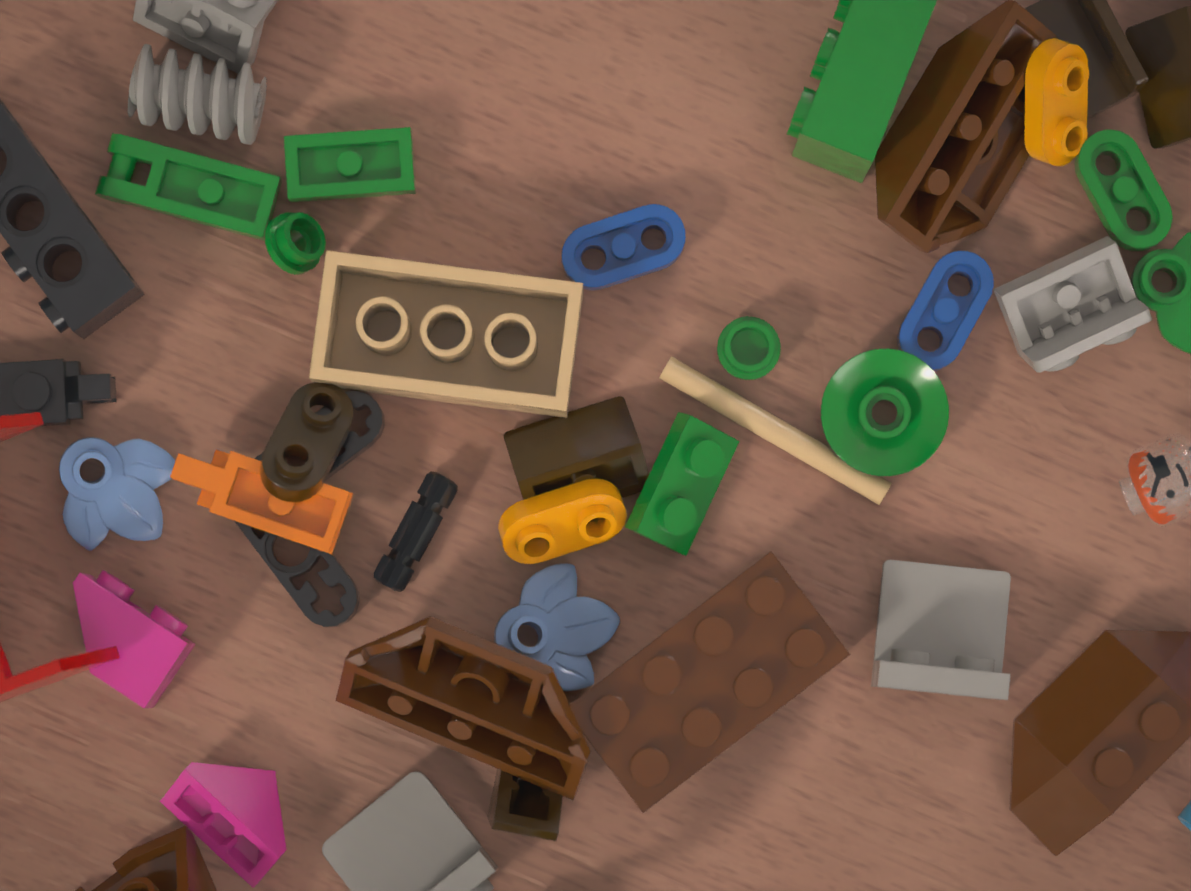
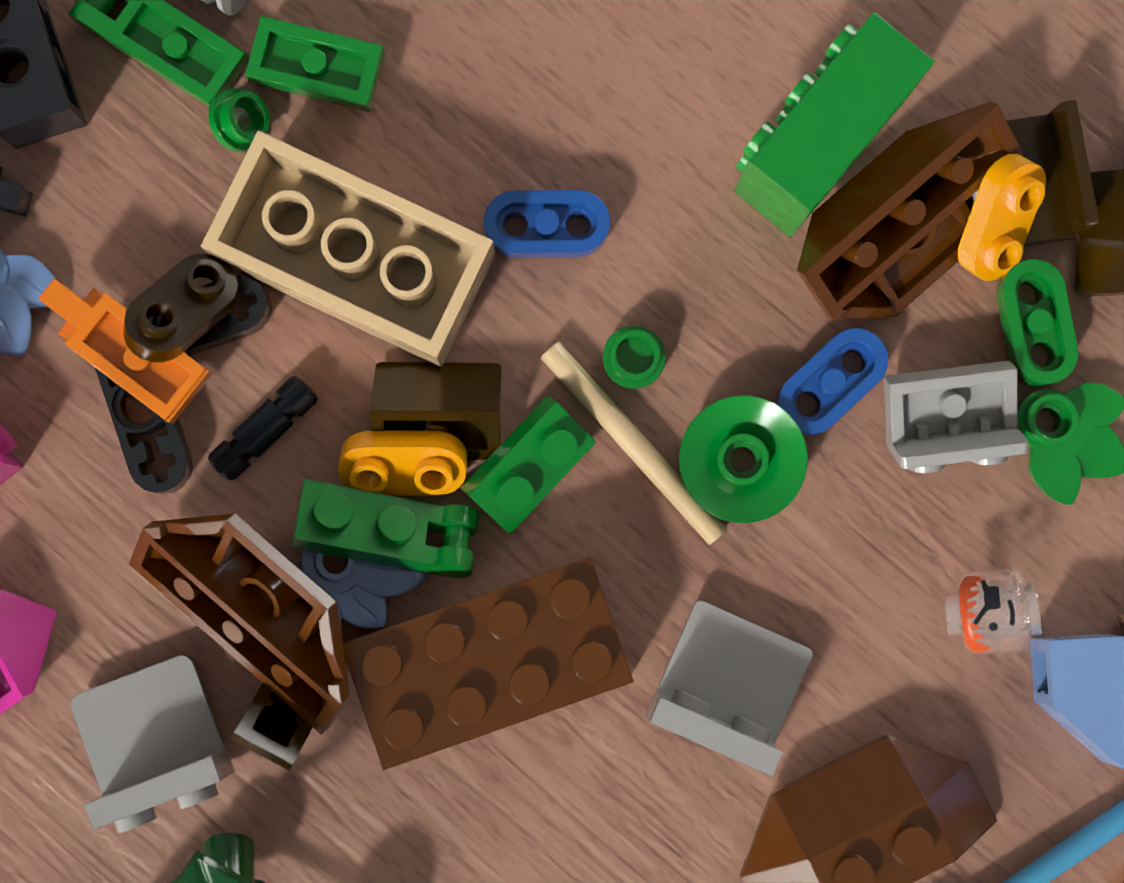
camera: 10 degrees right, 0 degrees up
(566, 589) = (384, 529): none -> green plate

